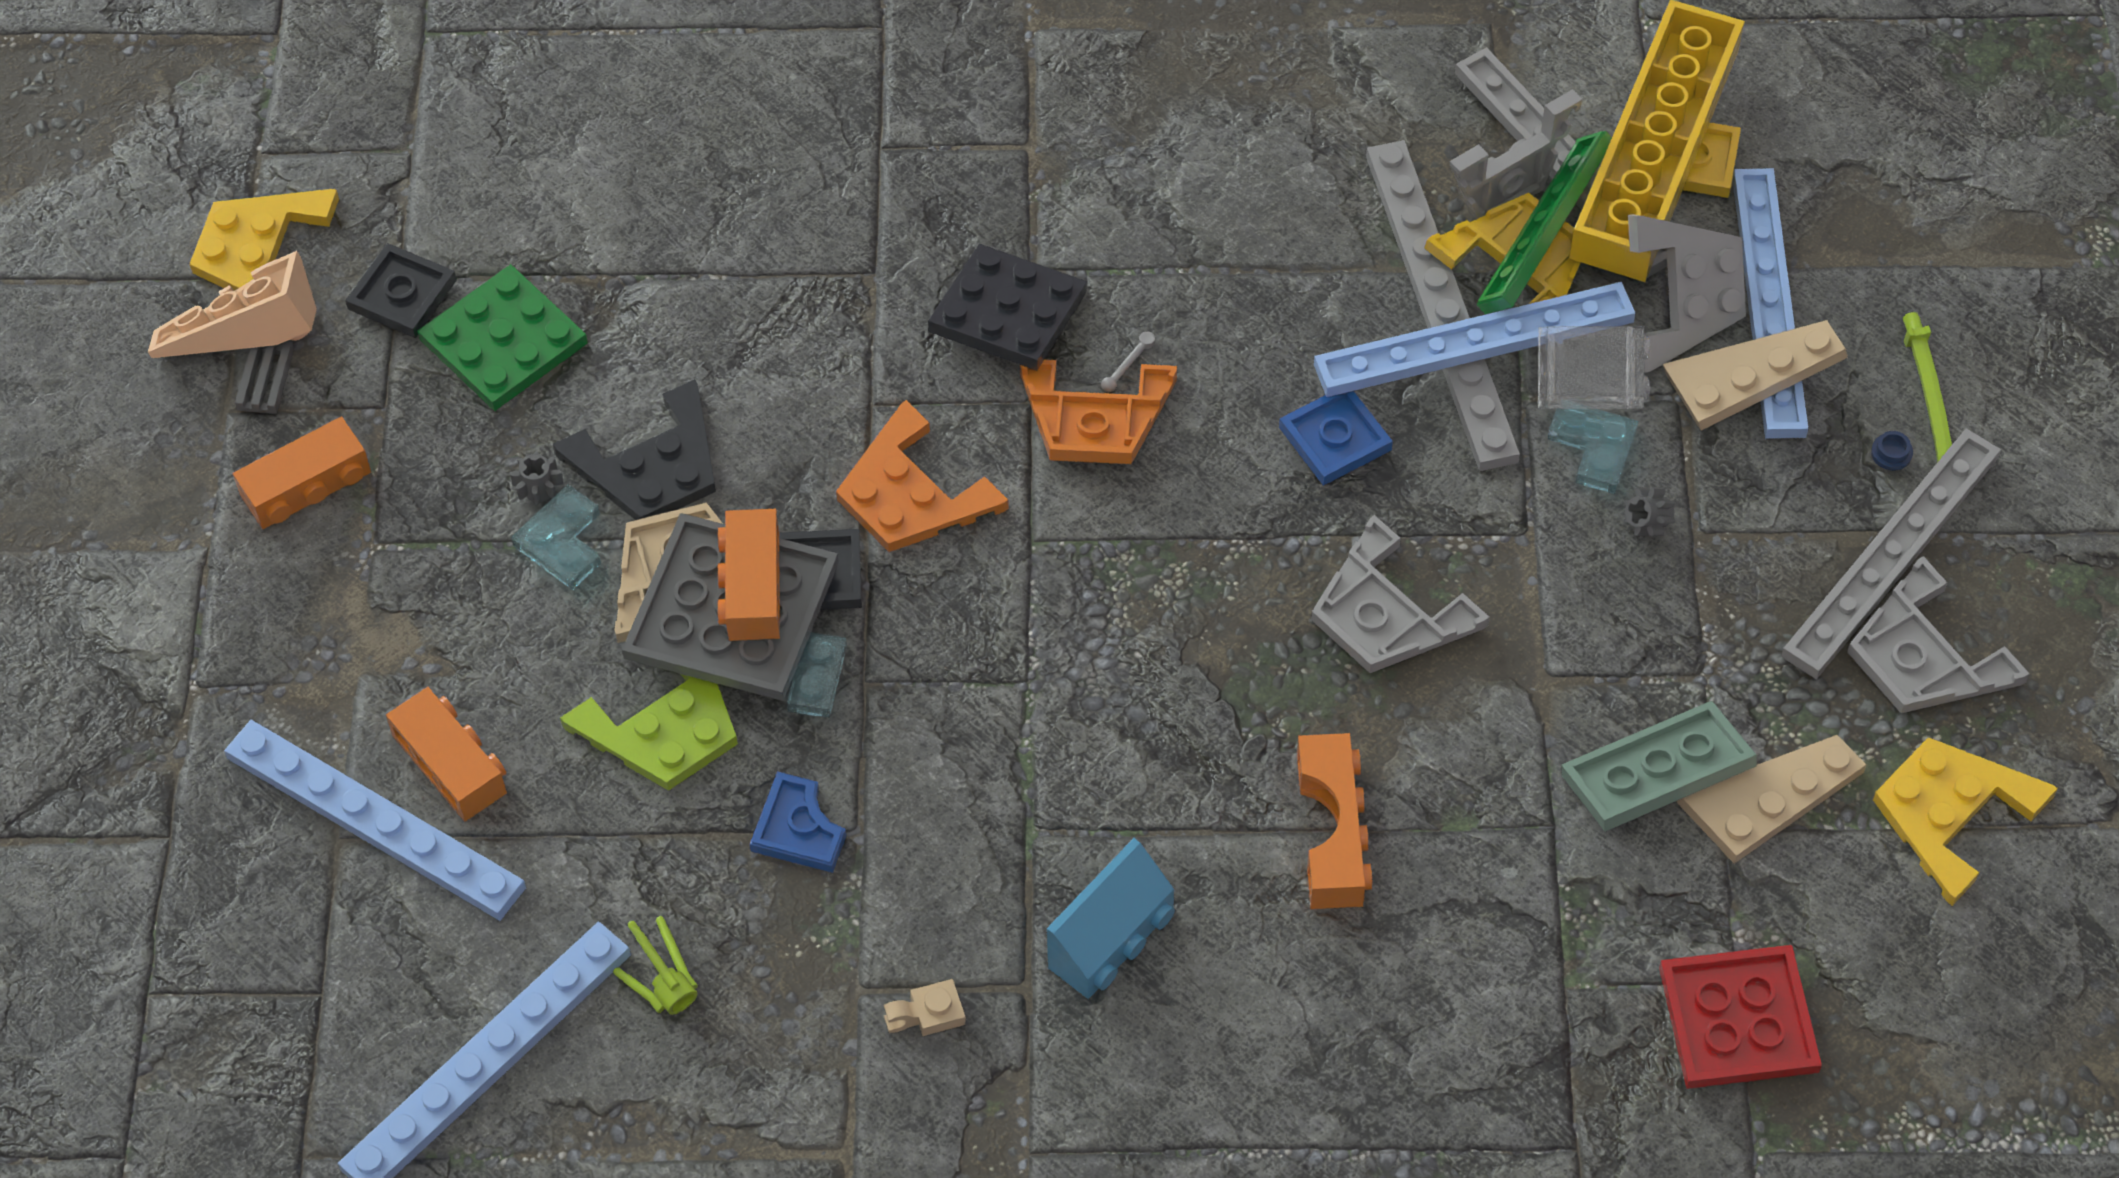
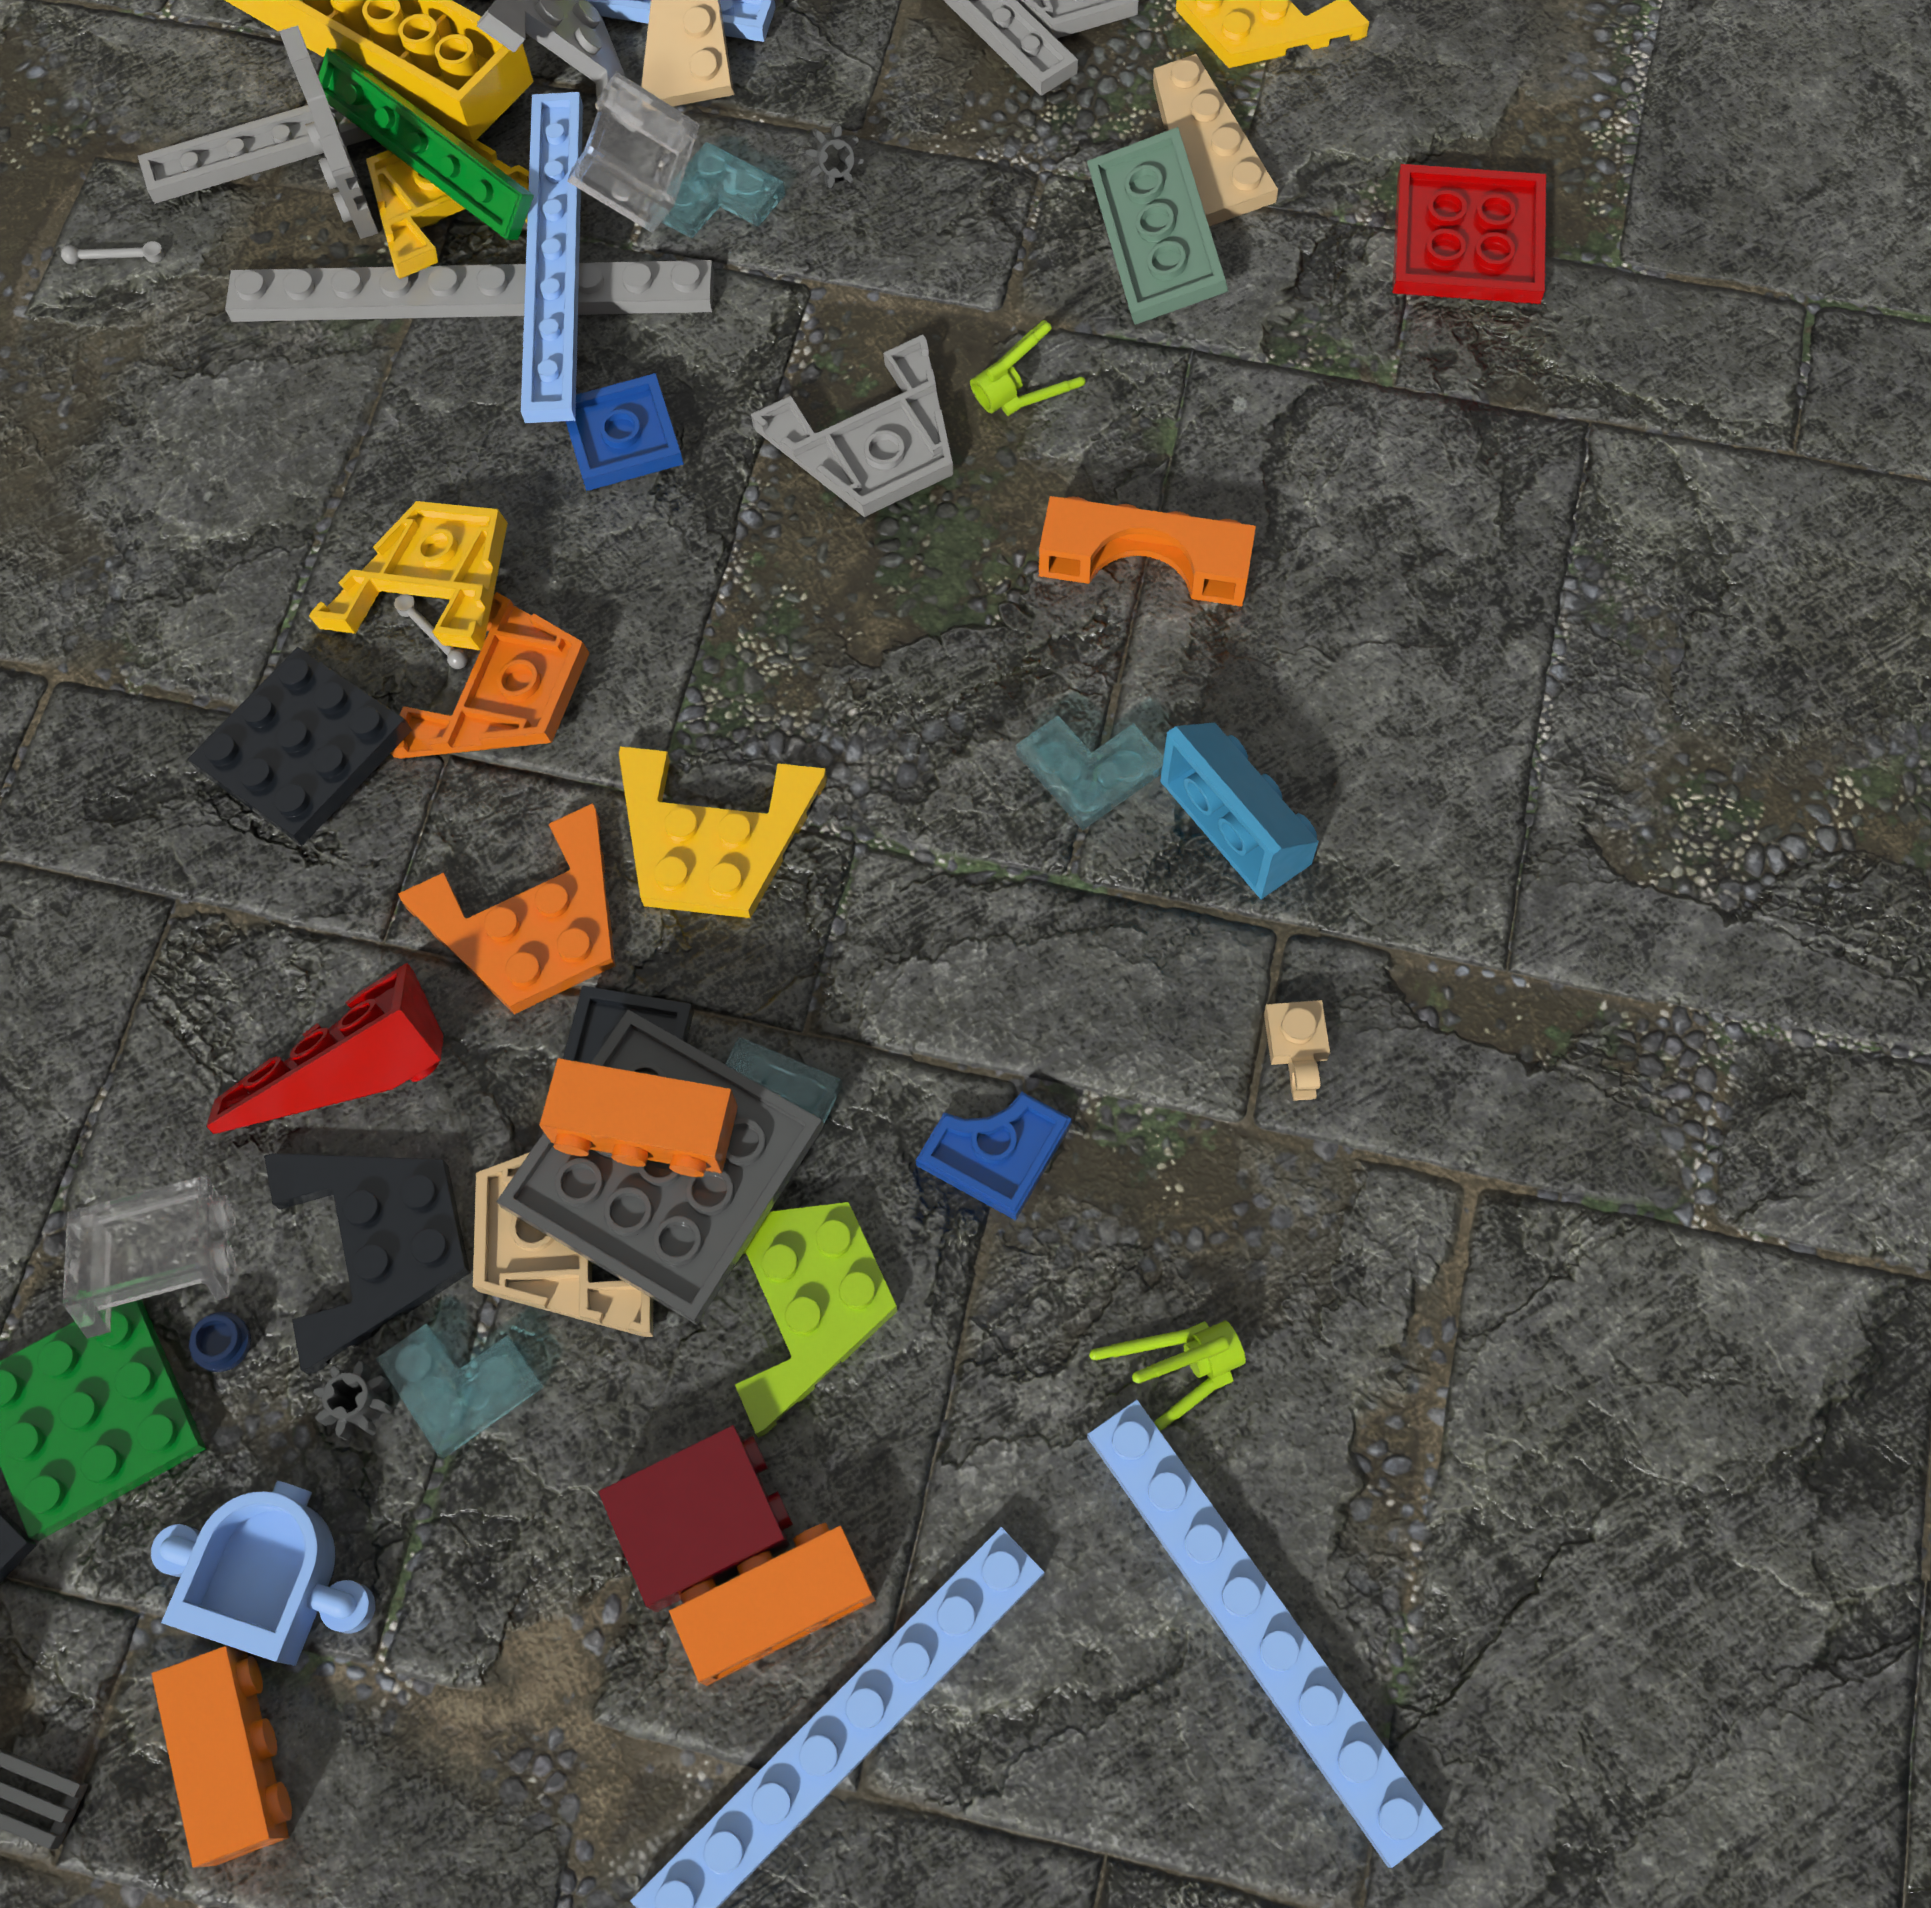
camera: 75 degrees left, 10 degrees up
(414, 462) = (259, 1576): none -> light blue piece
(496, 693) = (695, 1516): none -> dark red brick
(563, 393) = (220, 1341): none -> dark blue plate
(610, 330) = (146, 1249): none -> clear panel
(772, 405) = (368, 1051): none -> red wedge
(988, 586) = (709, 855): none -> yellow wing
(1113, 814) = (1088, 781): none -> clear light blue plate
(1183, 343) = (433, 554): none -> yellow wing
(1411, 86) = (151, 251): none -> light grey hinge
(1464, 684) = (999, 383): none -> lime plant

